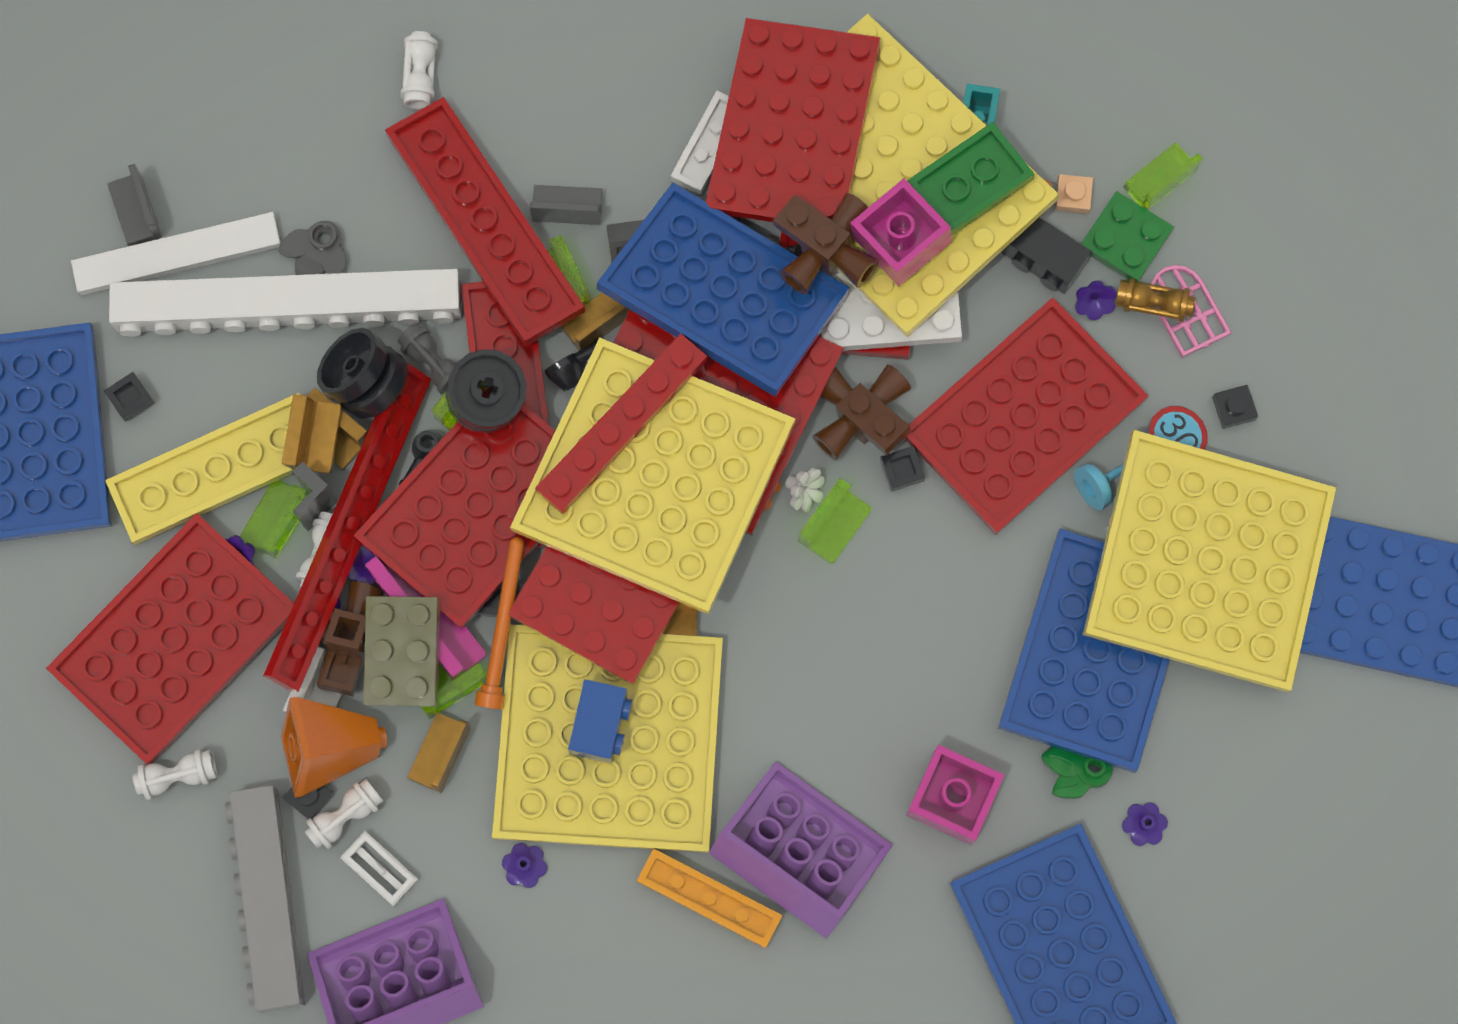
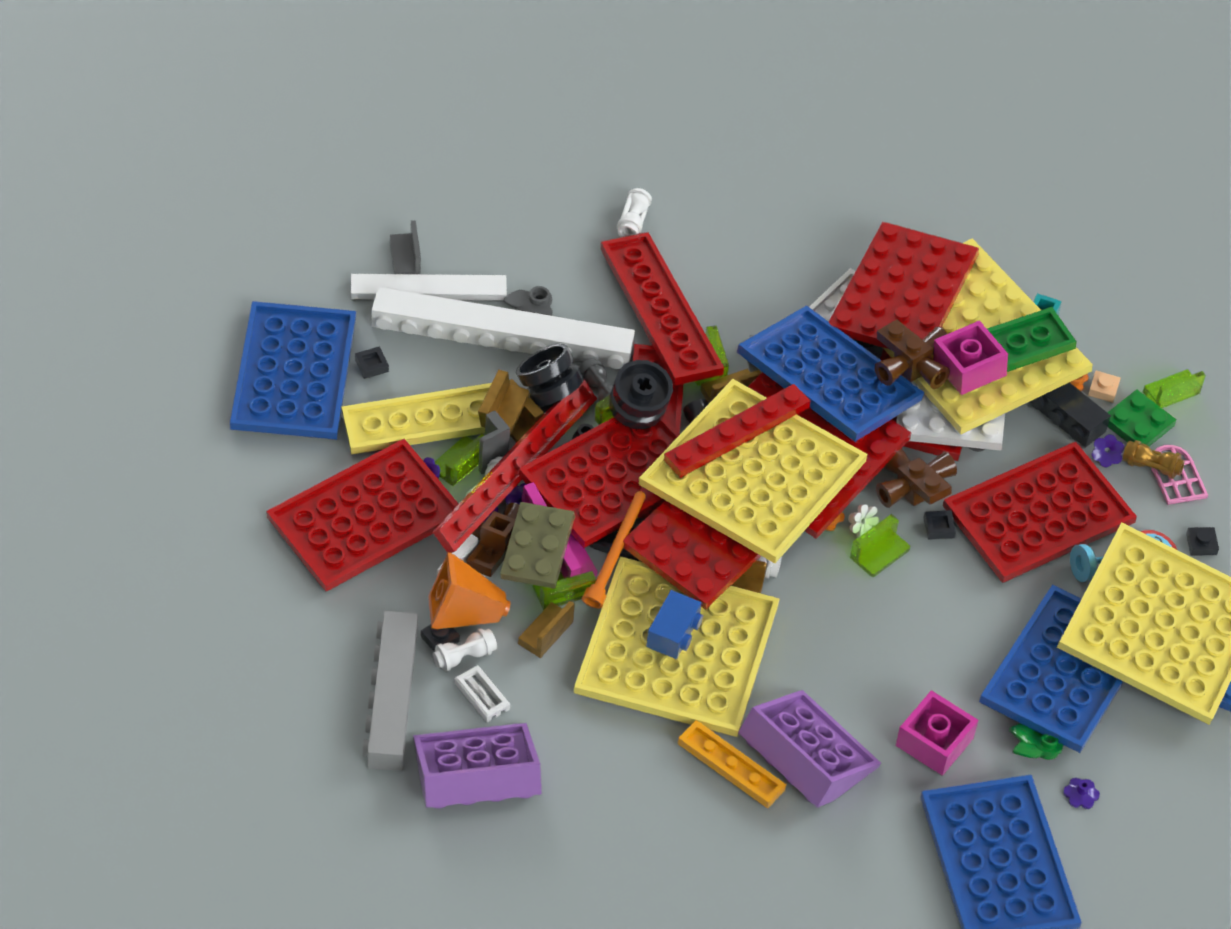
camera: 10 degrees right, 25 degrees down
(191, 769) = (357, 597): white piece -> none
(527, 875) = (593, 716): dark purple plant -> none
(566, 204) = (725, 316): dark grey panel -> none

